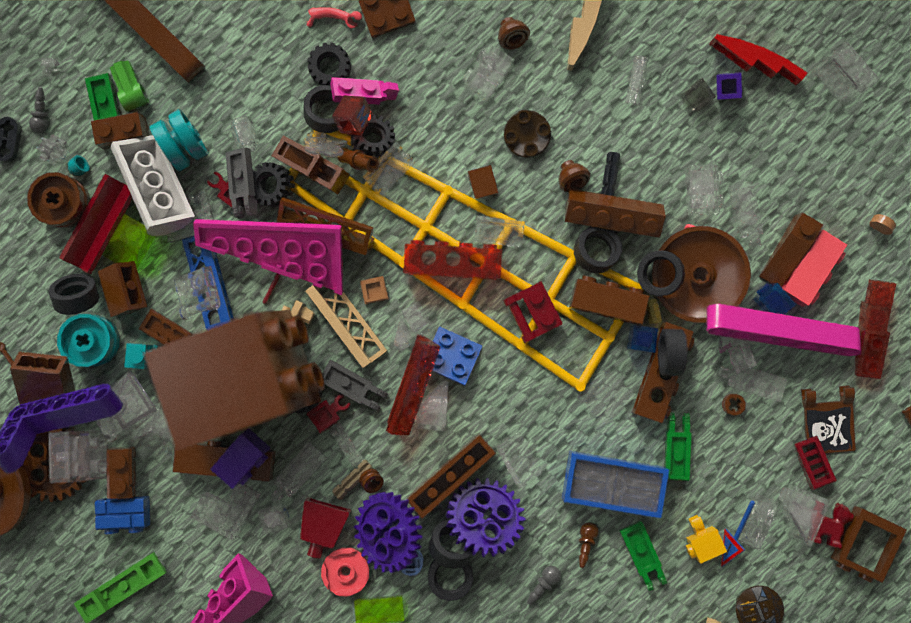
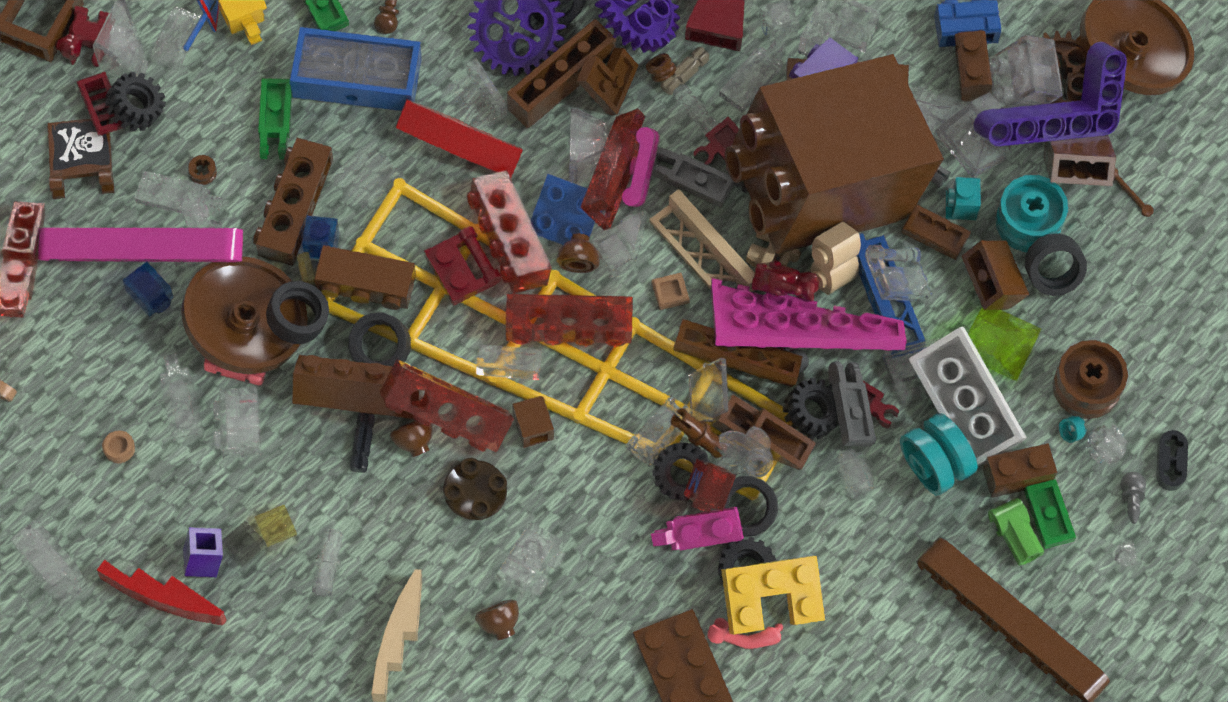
camera: 170 degrees right, 20 degrees down
(97, 224) = (1036, 353): dark red panel -> none
(244, 300) = (836, 257): none -> tan brick
(286, 285) = (783, 280): none -> dark red animal
(296, 50) = (748, 583): none -> yellow plate
(349, 194) = (709, 391): none -> clear piece
(390, 388) = (642, 167): none -> dark pink plate
(413, 464) = (608, 82): none -> reddish brown plate
(443, 318) = (578, 255): none -> reddish brown brick
(502, 373) = (502, 212): none -> clear red brick
(532, 419) = (458, 138): none -> red slope
(549, 185) = (406, 379): none -> clear red brick
(672, 352) = (286, 206): black tyre -> none
(674, 112) = (275, 525): none -> clear yellow tile
(784, 474) = (144, 91): none -> black tyre
(791, 178) = (118, 446): none -> medium nougat tile
(791, 248) = (122, 355): reddish brown slope -> none
(814, 269) = (95, 330): coral brick -> none

